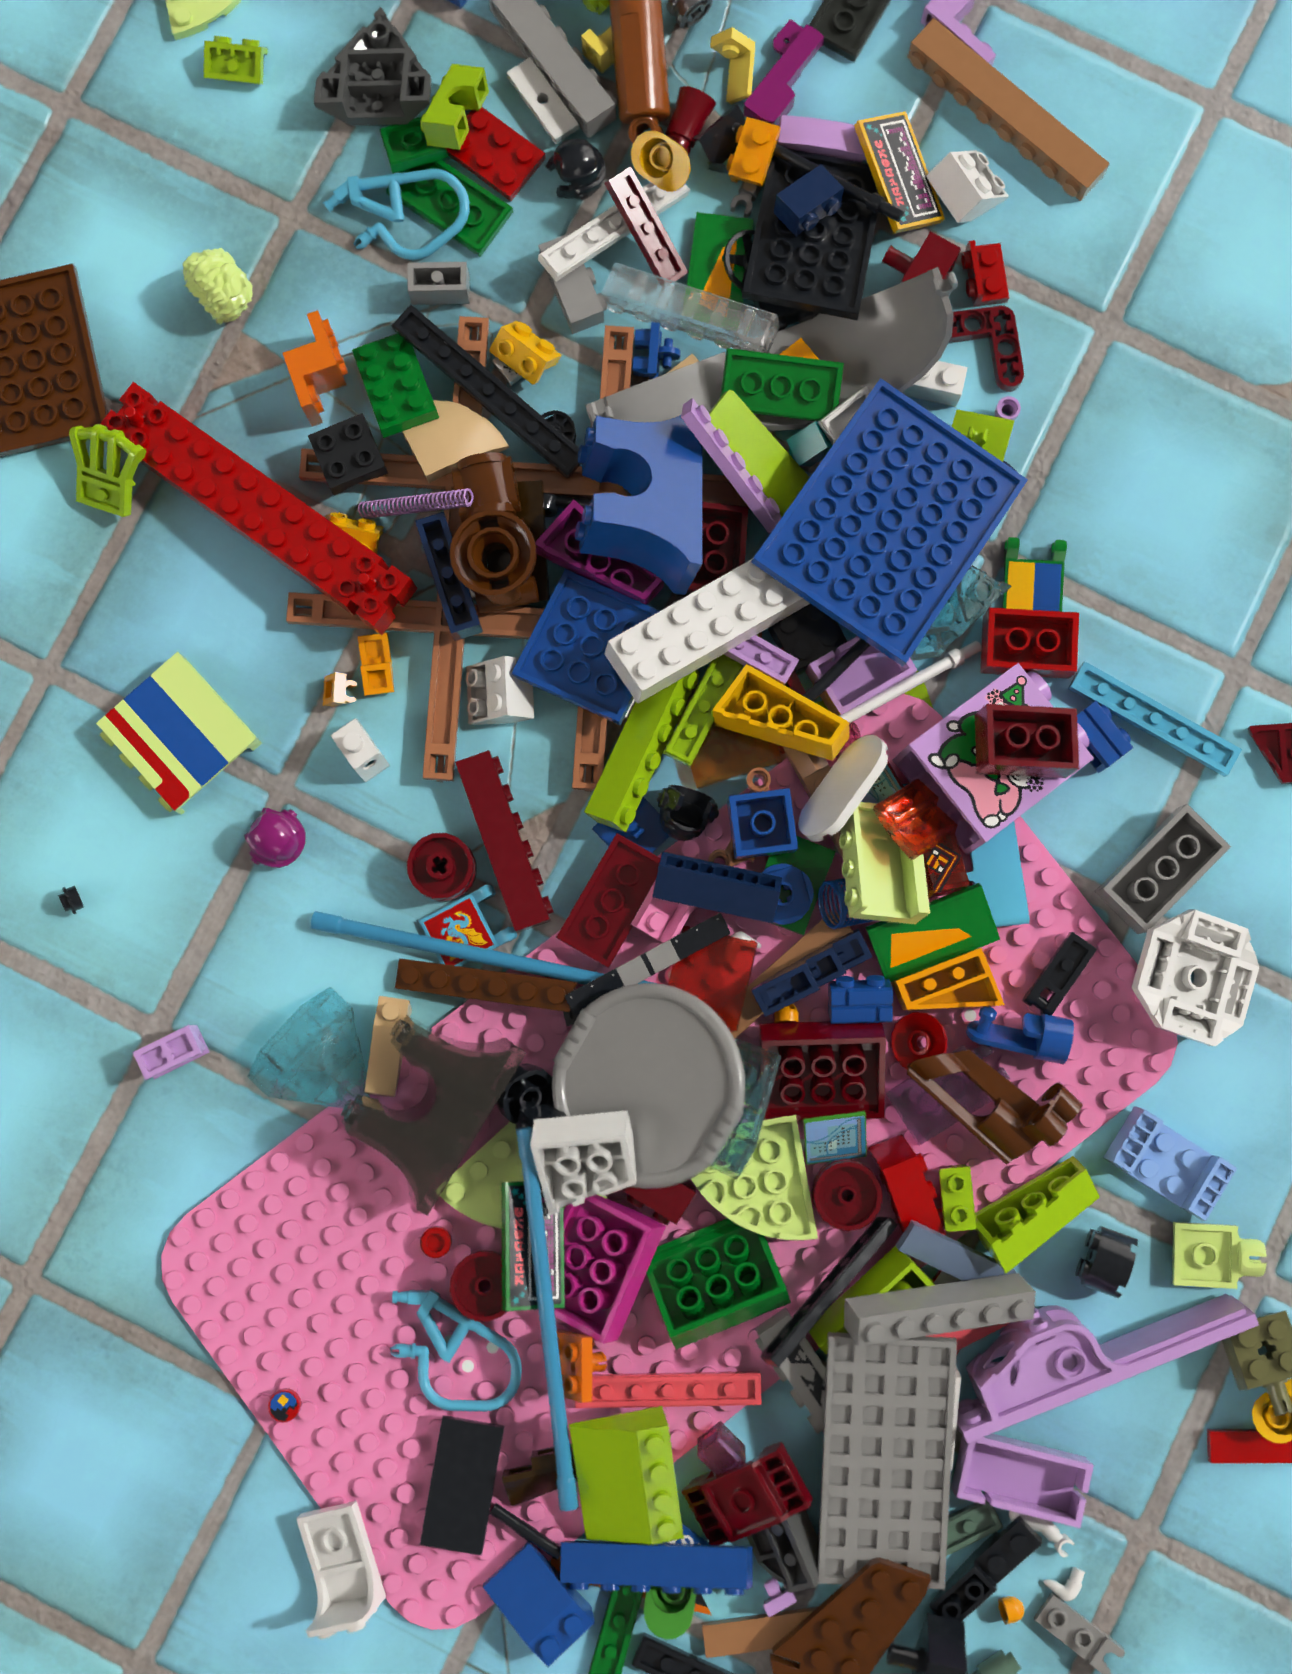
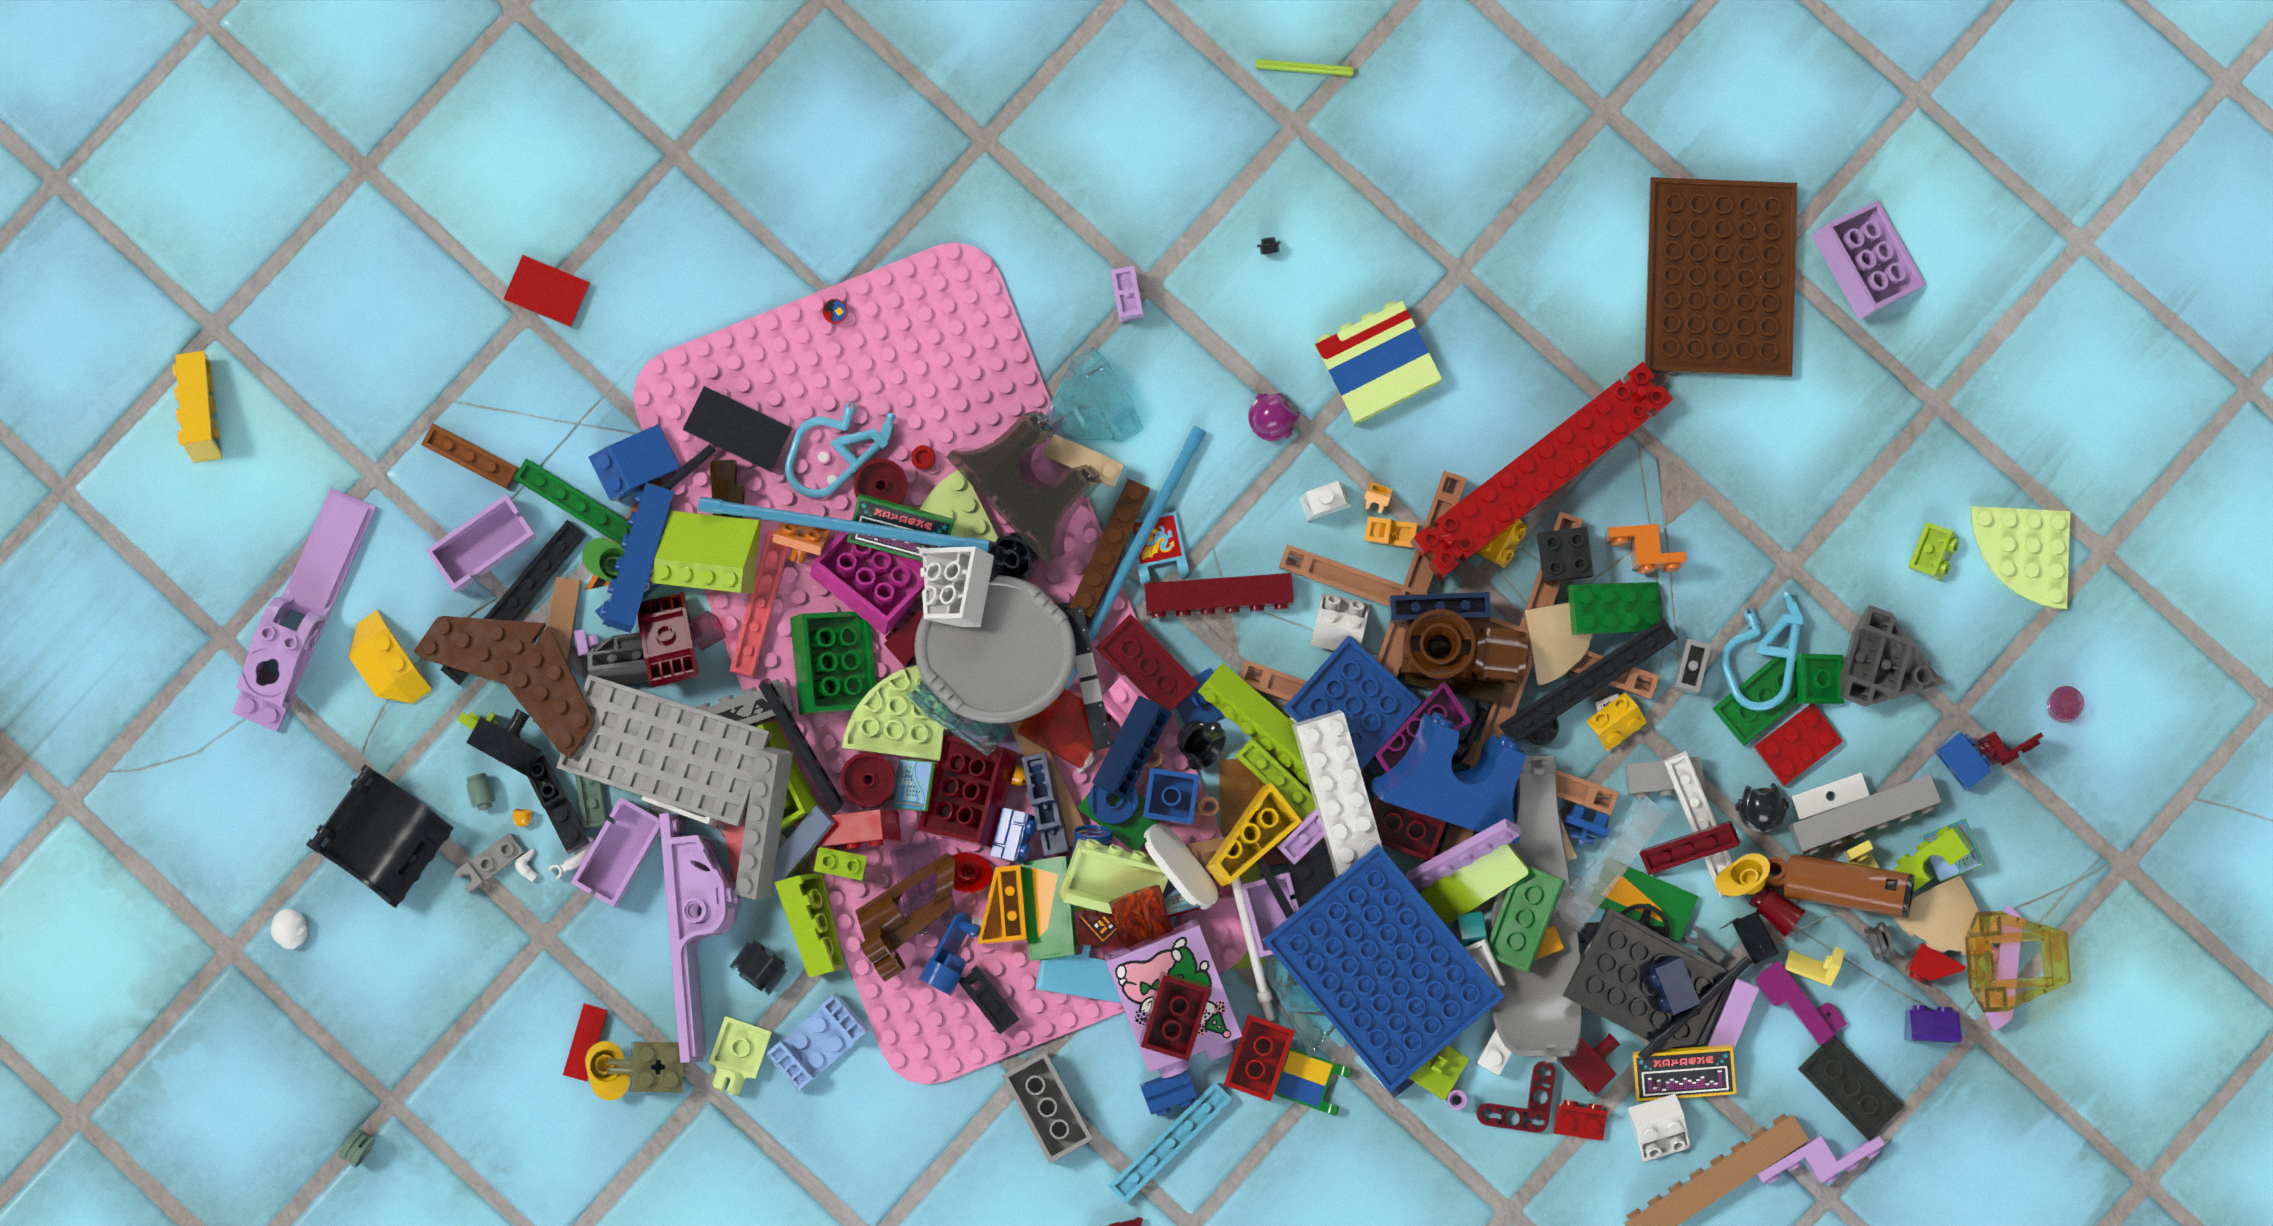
camera: 110 degrees right, 0 degrees up
(107, 487) = (1595, 351): lime plate -> none
(217, 284) = (1738, 487): yellowish green hair -> none
(342, 1568) = (705, 323): white bracket -> none
(413, 498) = (1509, 577): lavender piece -> none
(424, 864) = (1216, 526): dark red wheel -> none
(446, 120) = (1854, 729): lime arch -> none
(754, 151) = (1732, 955): light orange bracket -> none
(1222, 970) = (941, 1125): white piece -> none

